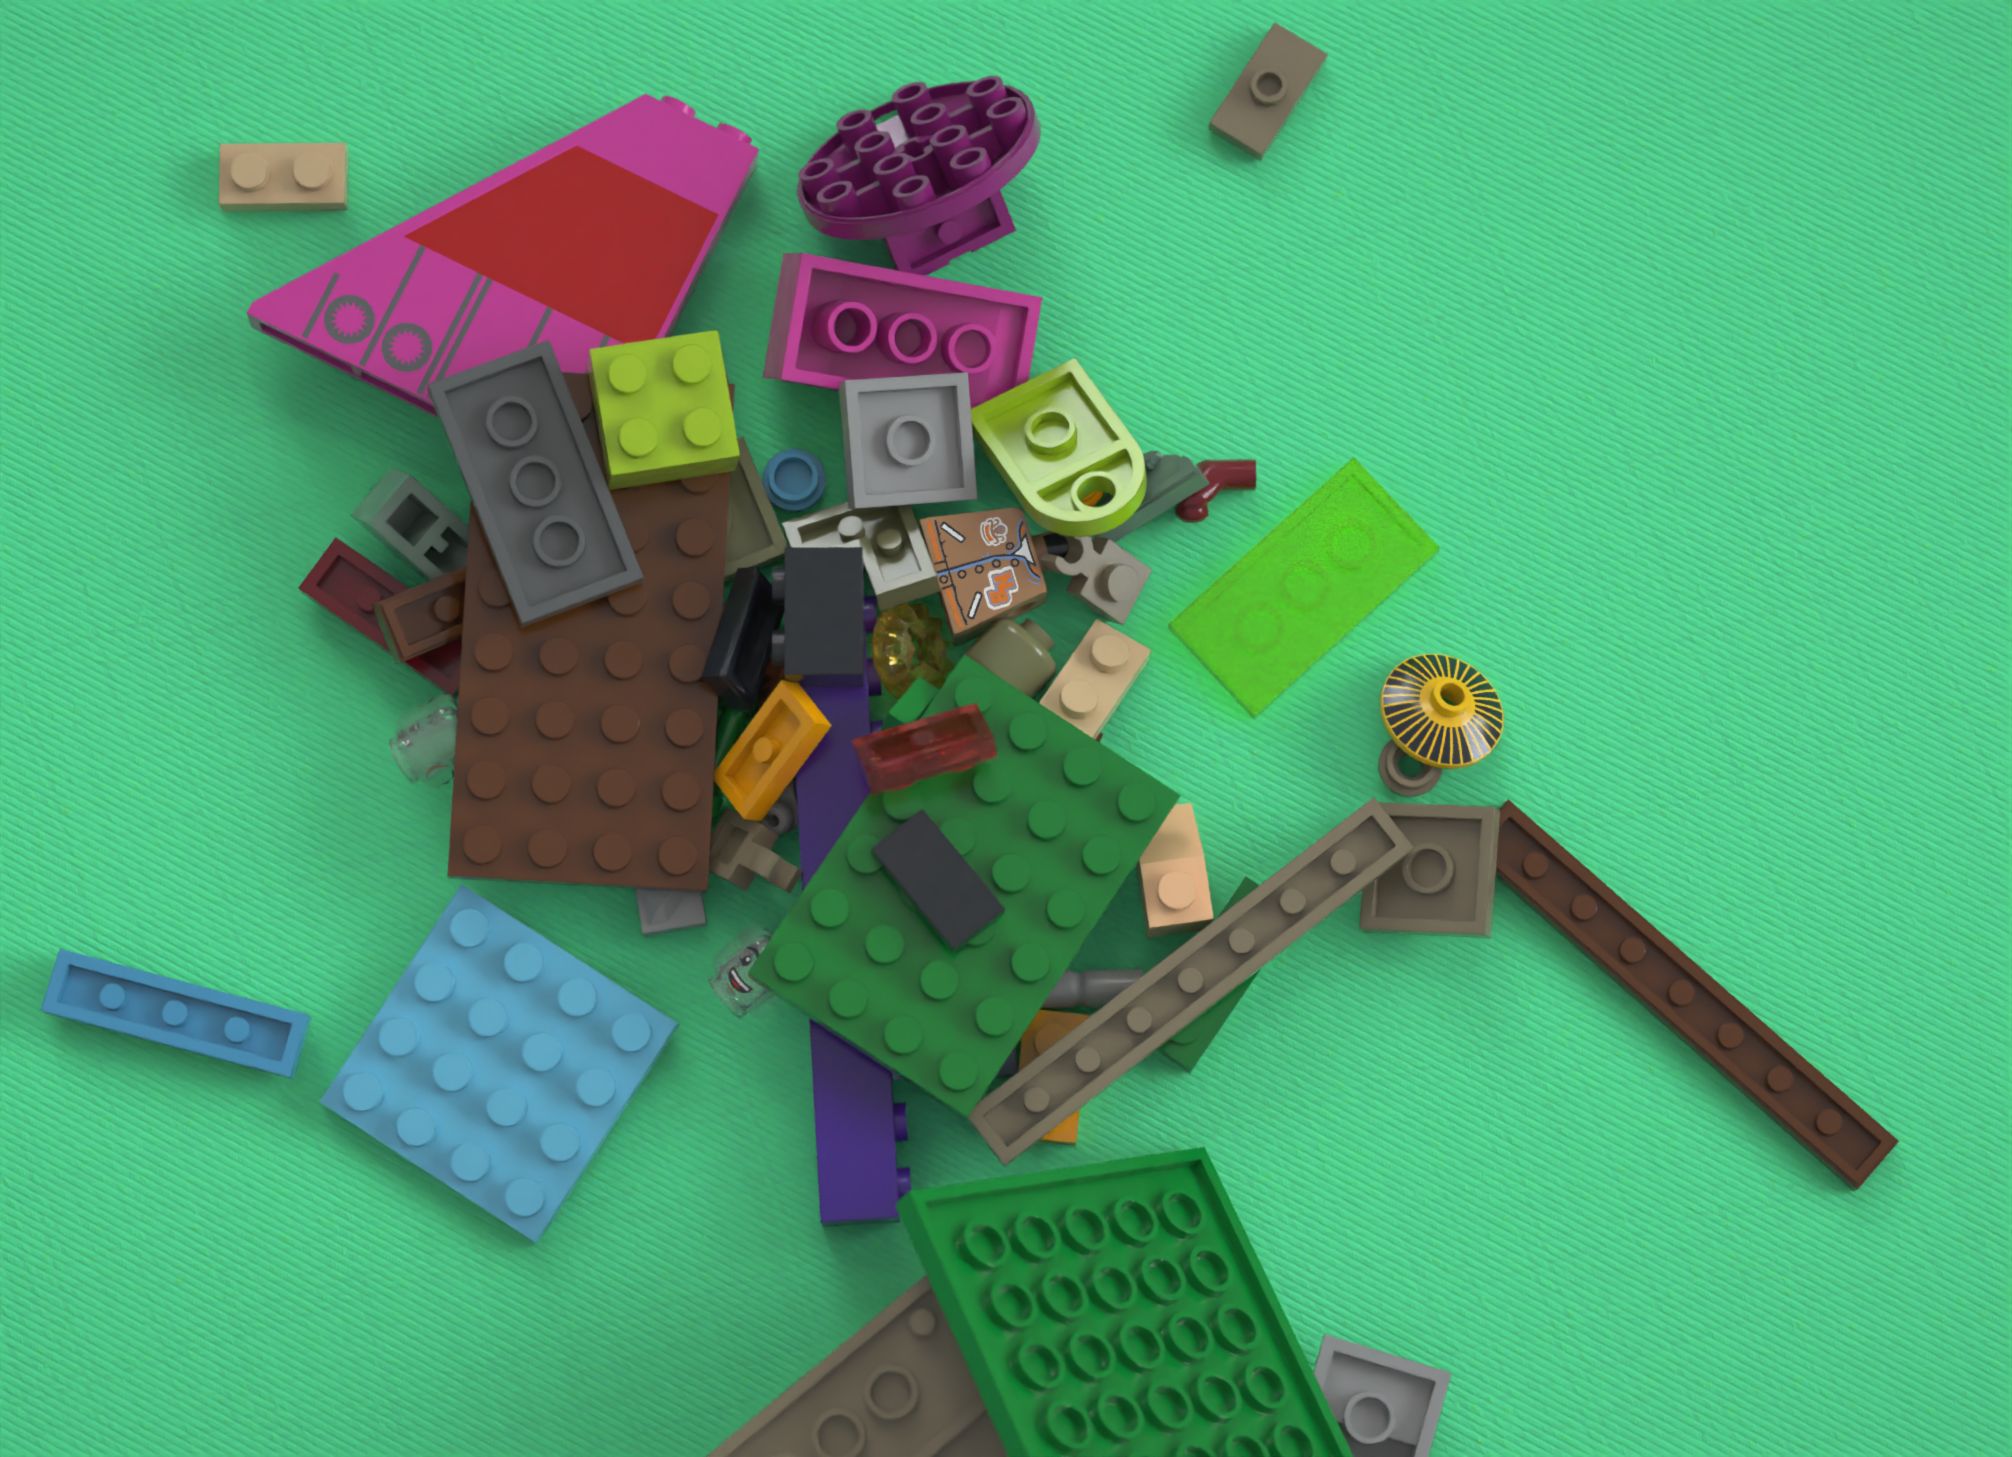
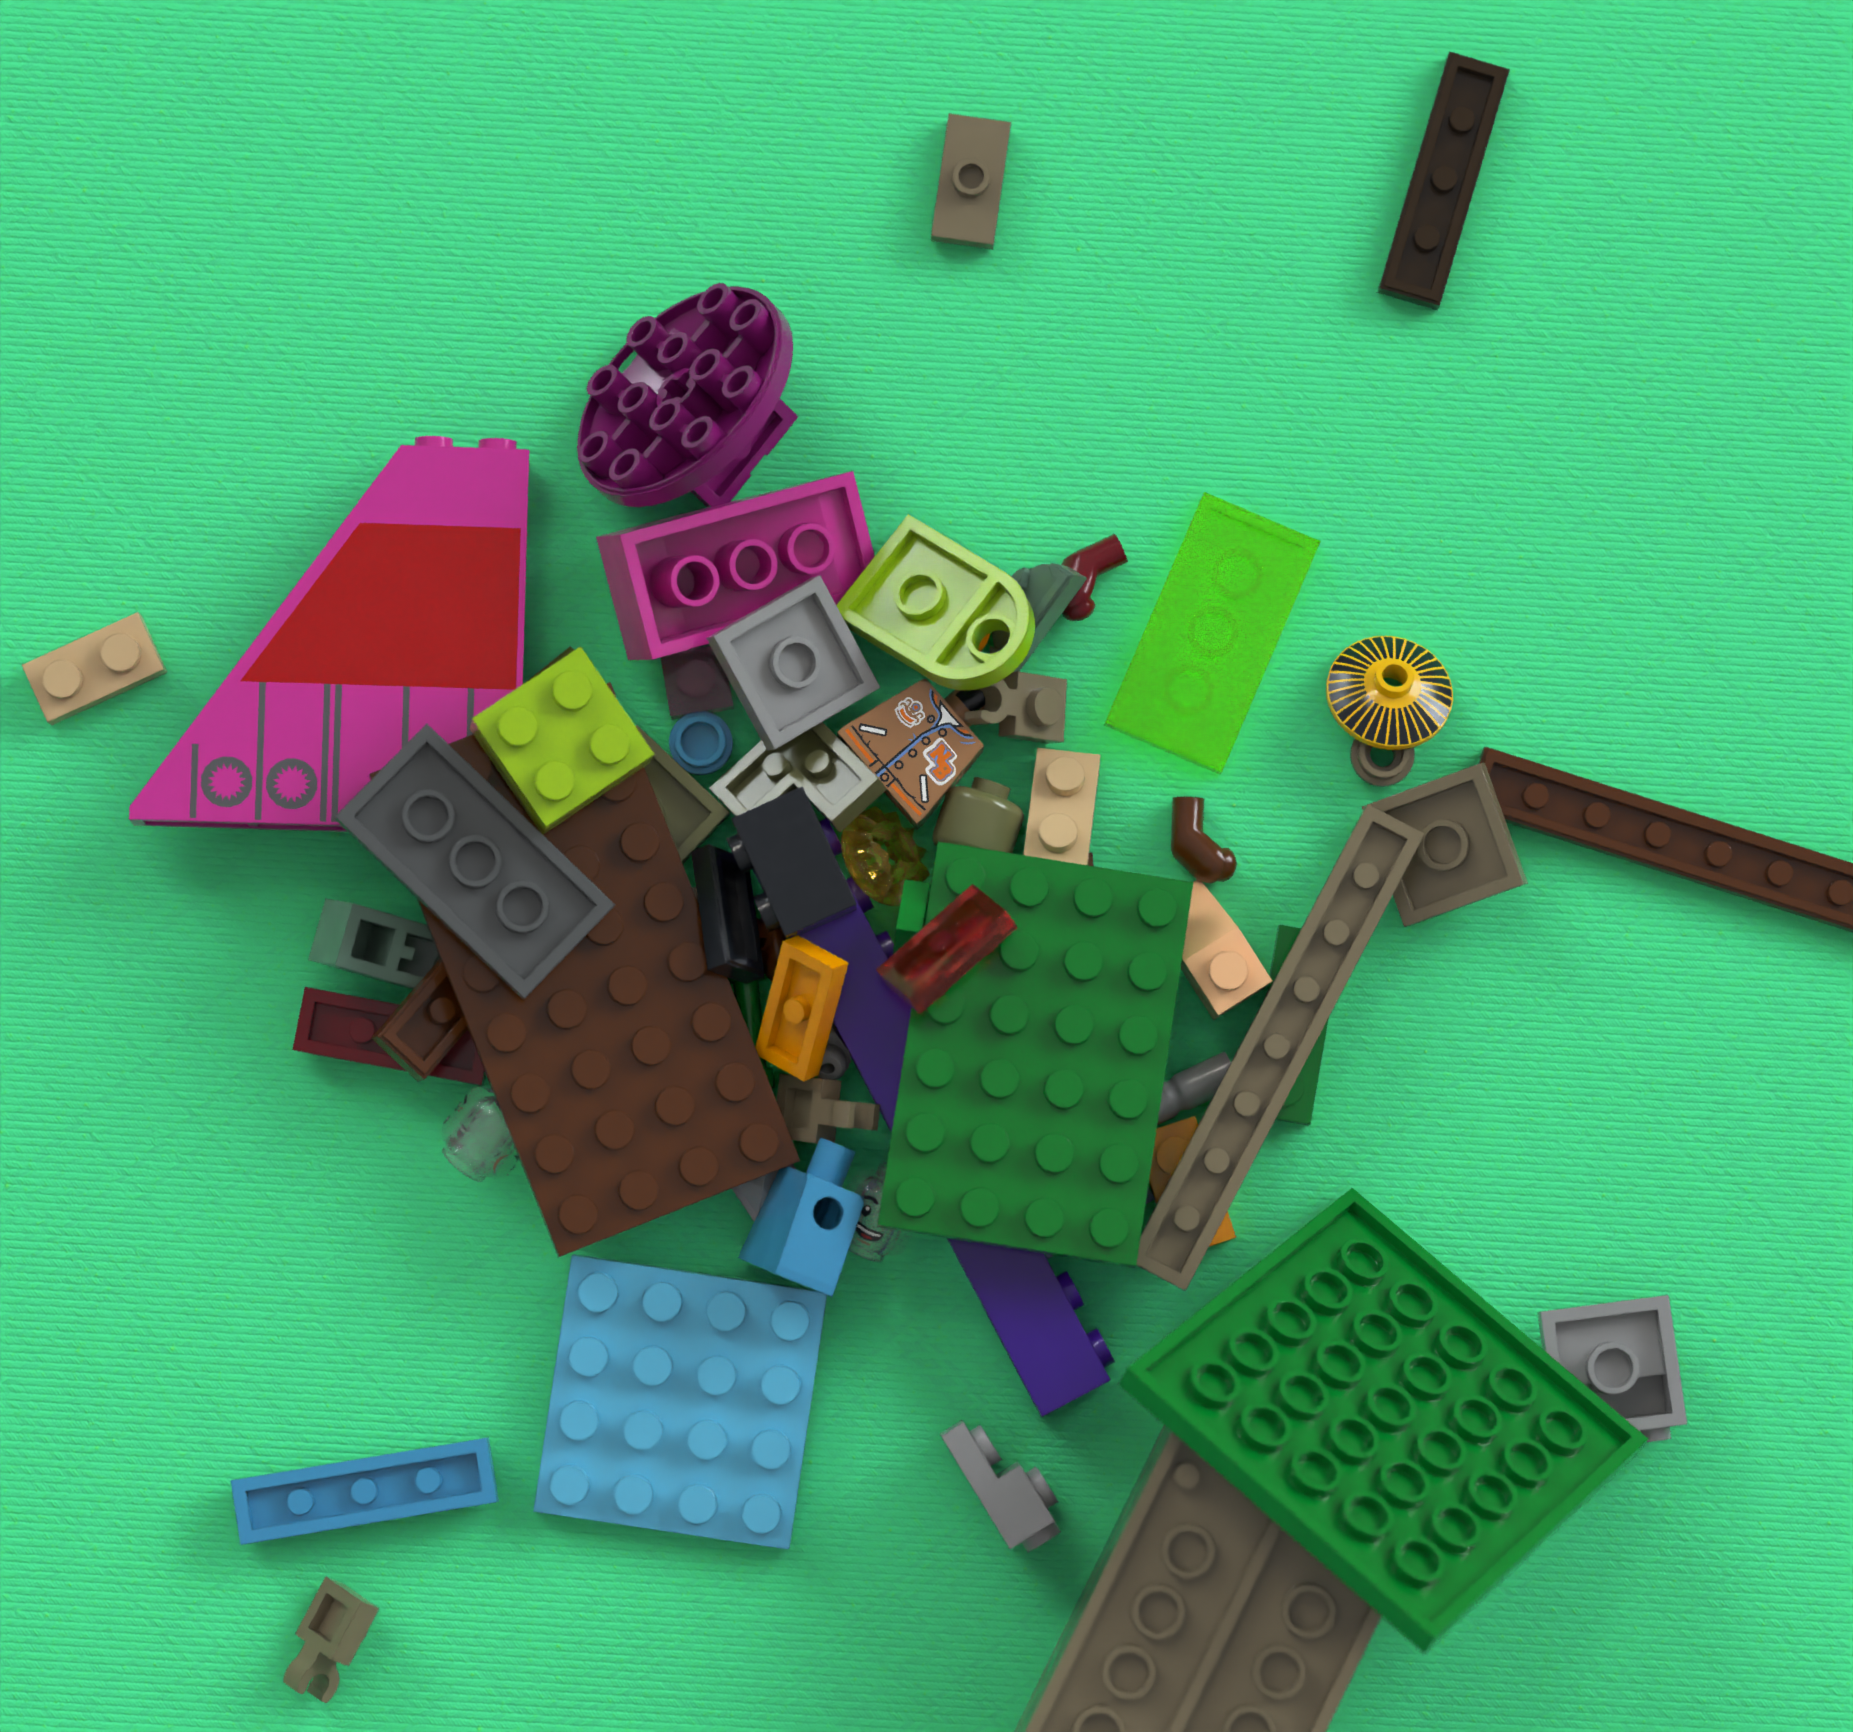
camera: 25 degrees left, 5 degrees up
(84, 1130) = (331, 1634): none -> dark tan plate
(664, 954) = (807, 1221): none -> dark azure torso
(757, 1282) = (1012, 1498): none -> light grey plate
(813, 425) = (695, 683): none -> clear pink plate
(938, 881) = (1012, 1063): black tile -> none
(1199, 773) = (1193, 847): none -> reddish brown arm
(1698, 277) = (1443, 181): none -> dark brown tile

